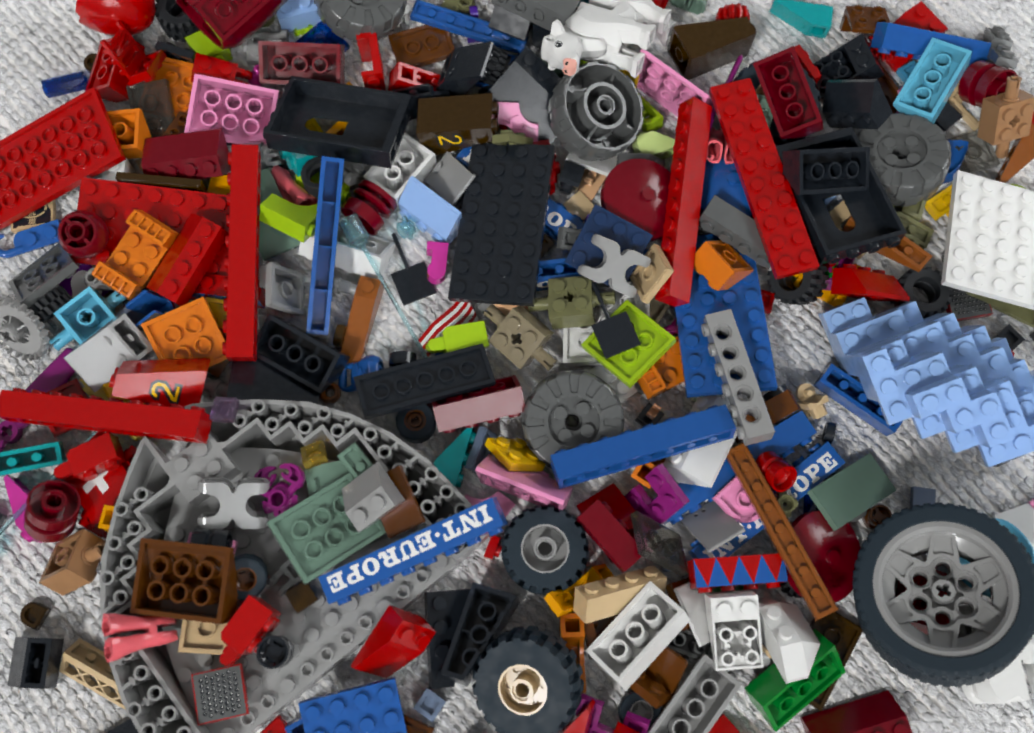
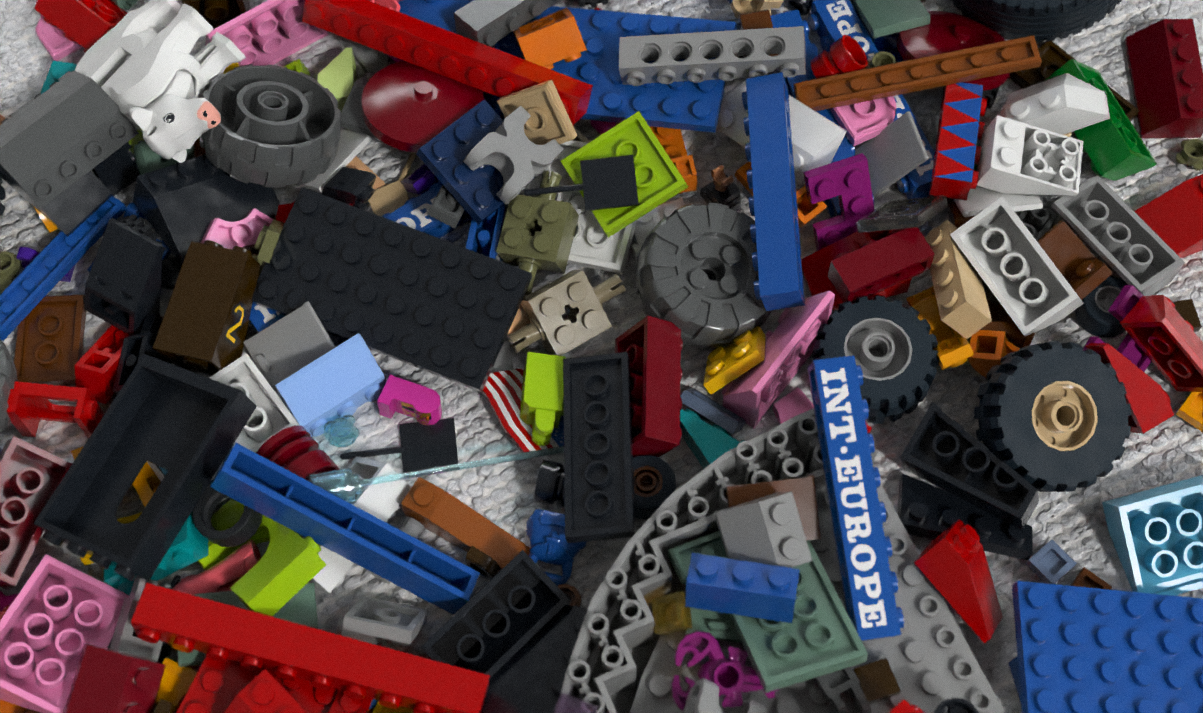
camera: 70 degrees left, 10 degrees down
(330, 492) = (741, 587): none -> blue brick

